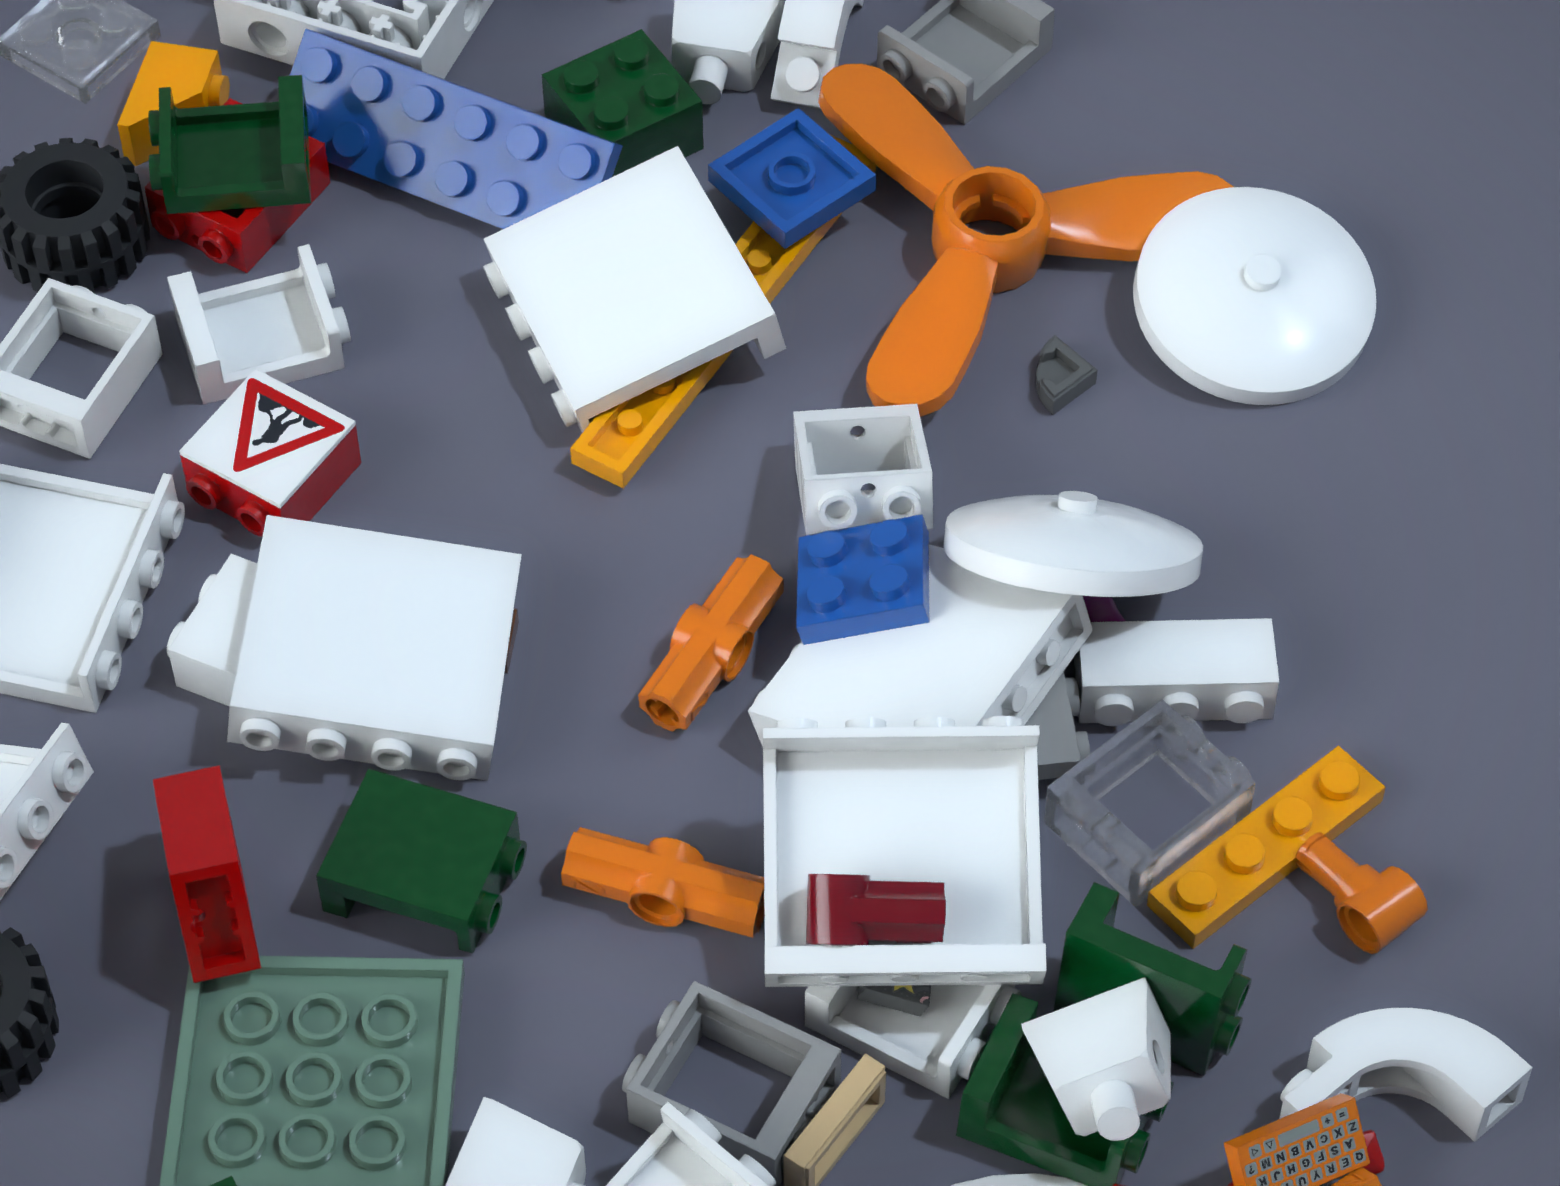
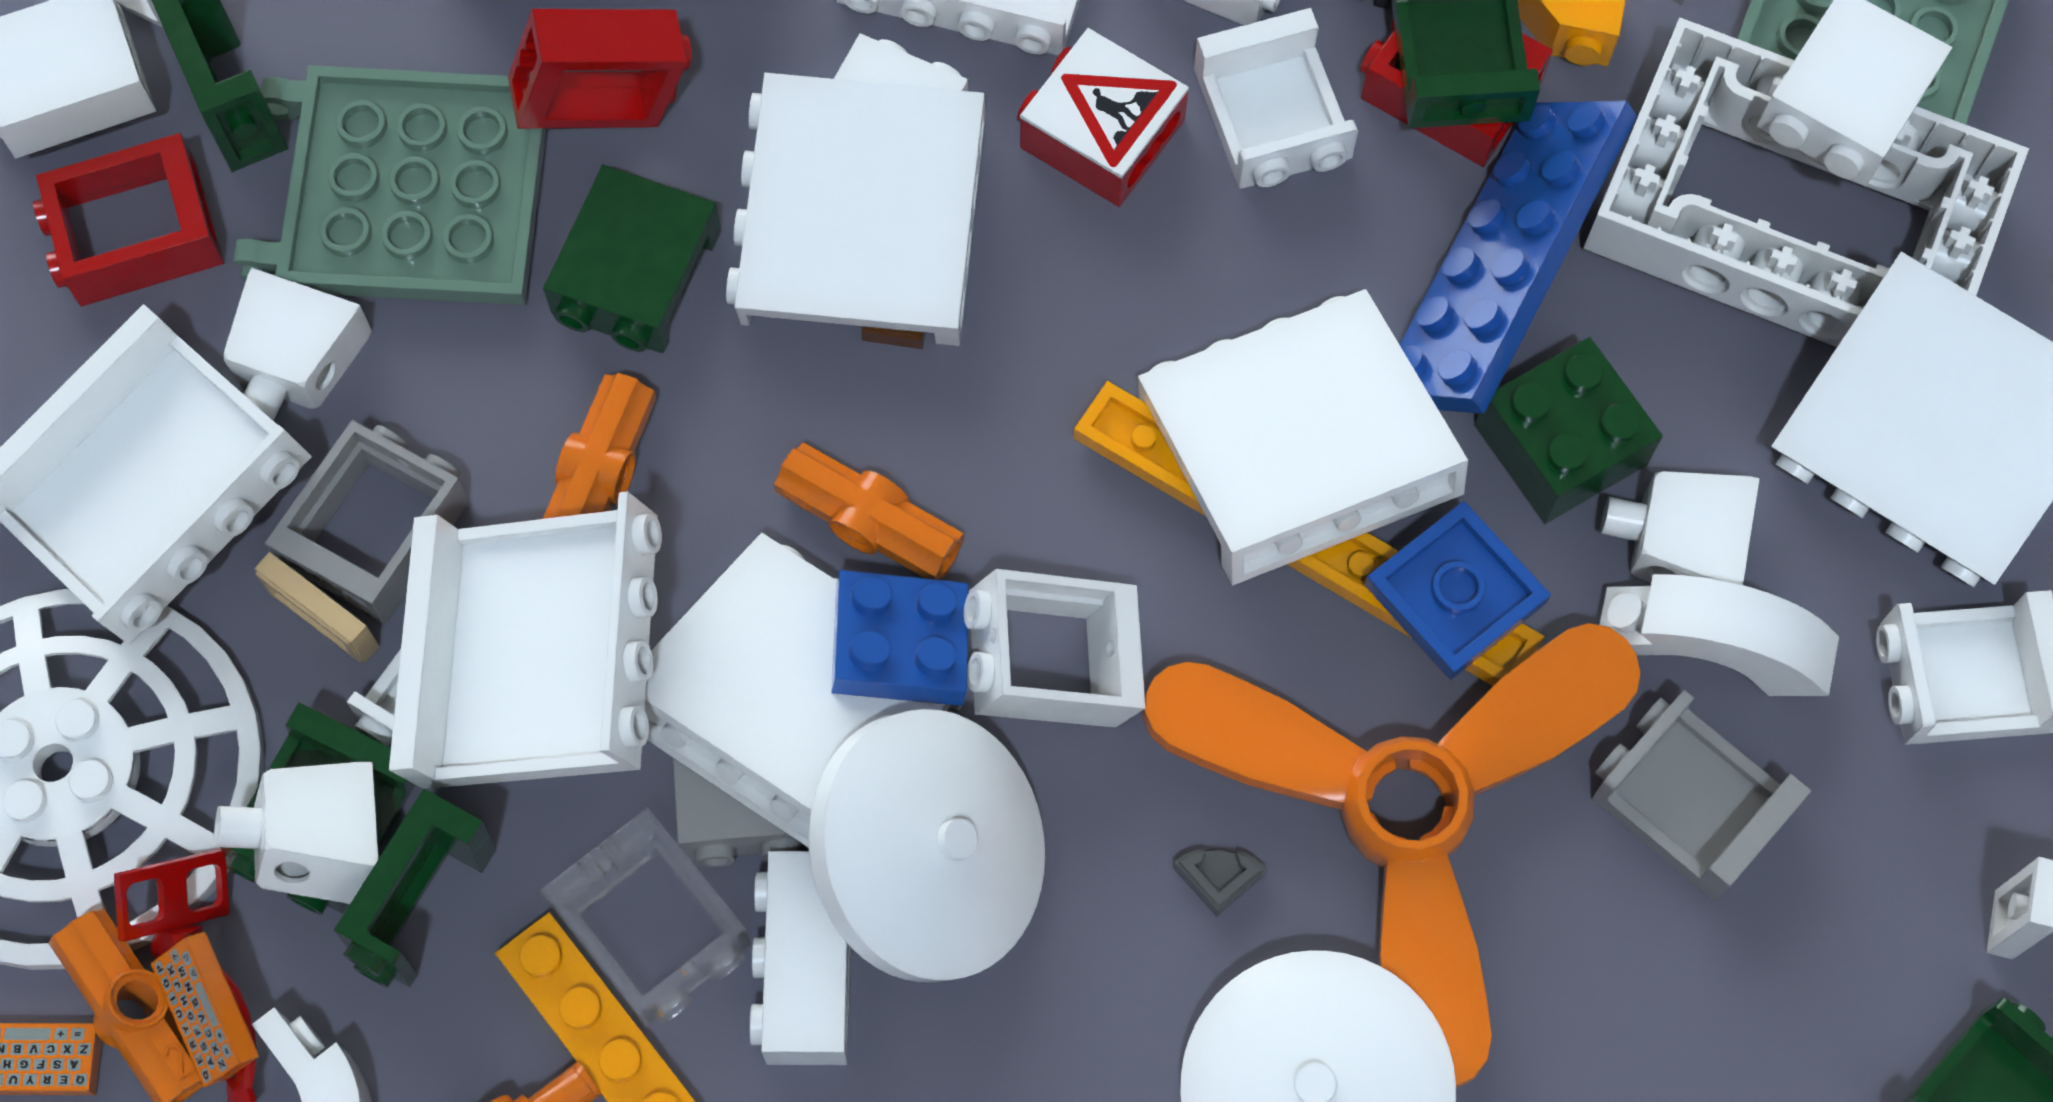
camera: 90 degrees right, 15 degrees up
(856, 910) = (469, 595): dark red piece -> none

